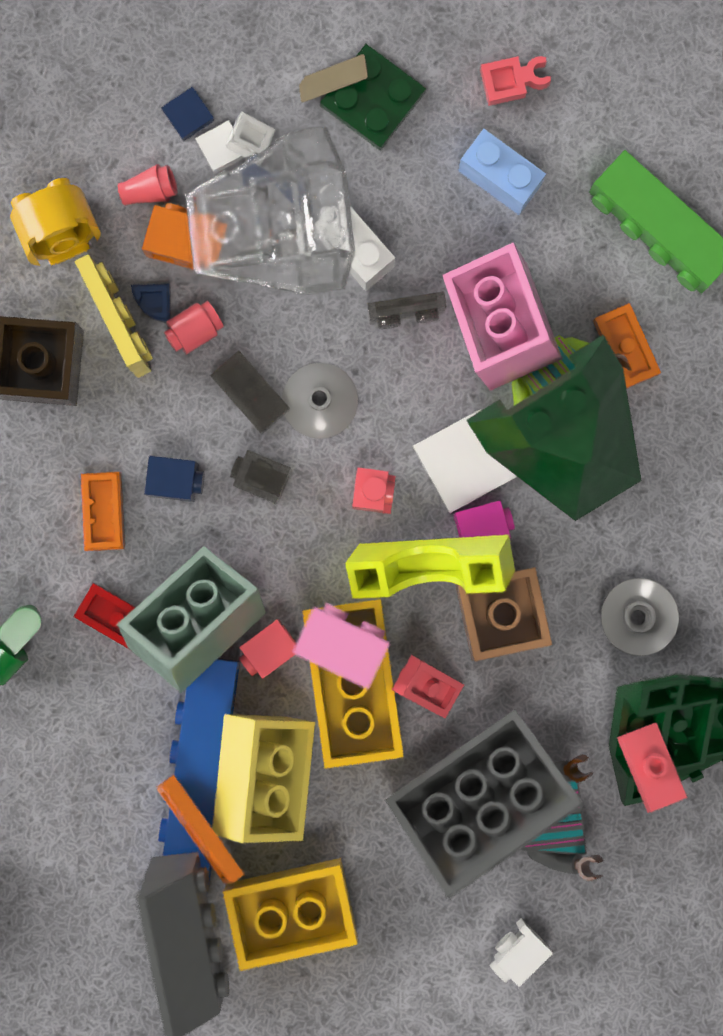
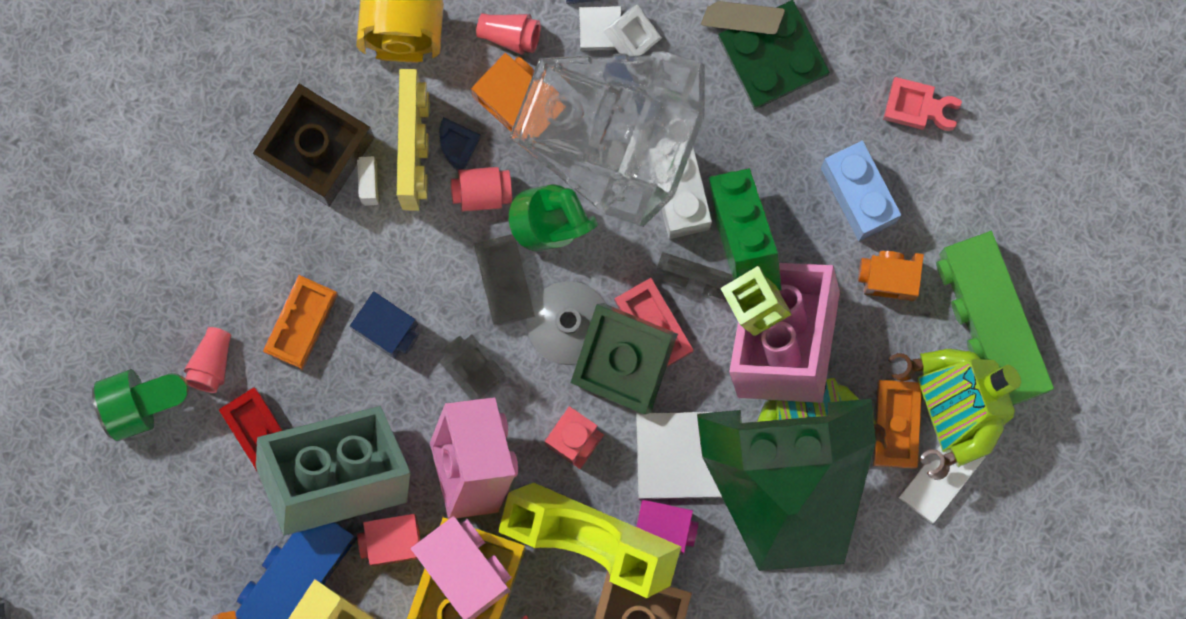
camera: 25 degrees right, 5 degrees down
(45, 583) = (208, 363): none -> coral cone
(97, 368) = (368, 181): none -> white tile
(261, 322) = (548, 218): none -> green piece
(301, 549) = (473, 457): none -> bright pink brick
(381, 406) = (624, 358): none -> dark green plate
(390, 367) = (648, 304): none -> coral plate
(428, 253) = (743, 225): none -> green brick
(468, 302) = (755, 301): none -> lime brick
(561, 228) = (891, 275): none -> orange brick
(674, 300) = (965, 402): none -> lime torso
(683, 371) = (932, 496): none -> white tile

